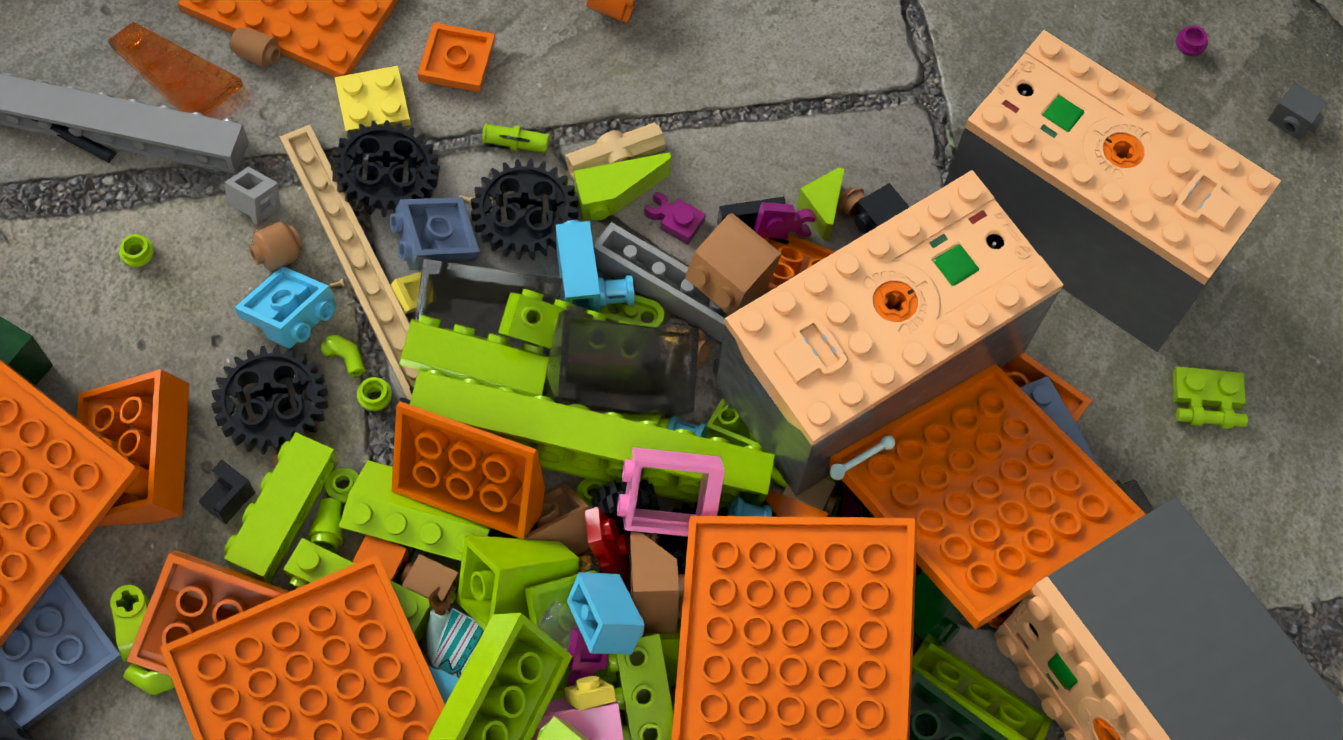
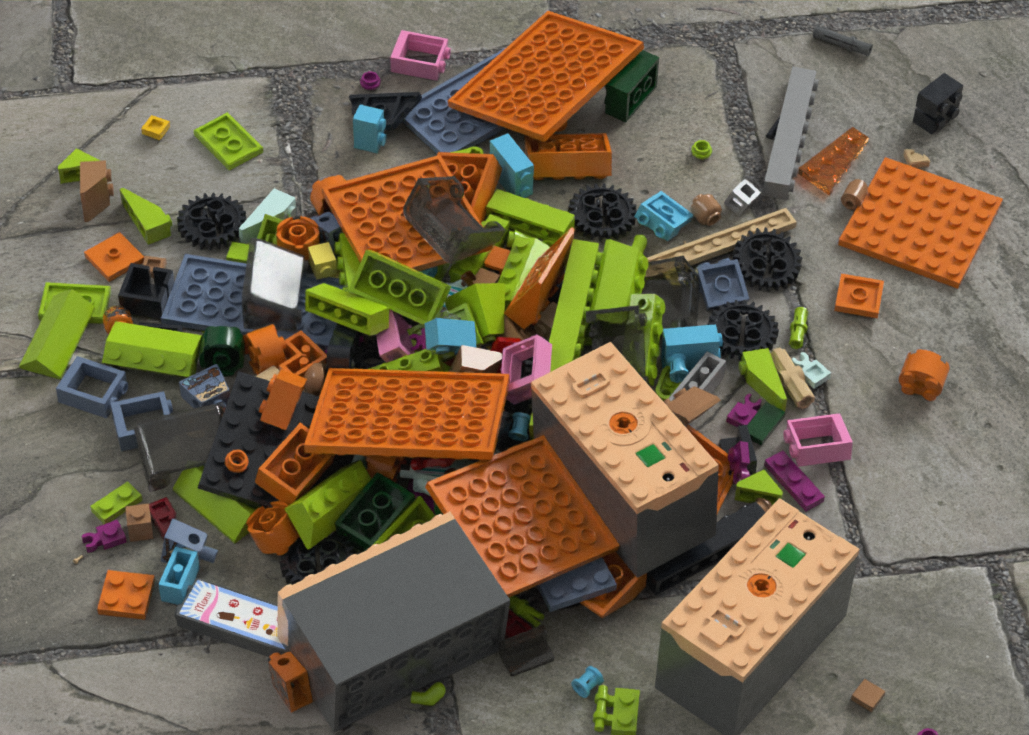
camera: 95 degrees right, 15 degrees down
(176, 525) = (517, 168): none -> medium azure brick
(227, 493) = (548, 197): black panel -> none
(346, 620) = (444, 223): none -> clear smoke windscreen
(372, 97) = (822, 256): light yellow plate -> none
(589, 693) = (407, 337): light yellow plate -> none
(598, 122) = (814, 371): none -> light aqua plate
(695, 191) = (765, 423): none -> dark green tile
(729, 95) = (815, 427): none -> bright pink window
(794, 162) = (794, 481): none -> magenta plate
(838, 471) = (531, 434): light aqua hinge -> none
(1175, 432) = (594, 677): none -> medium azure bush

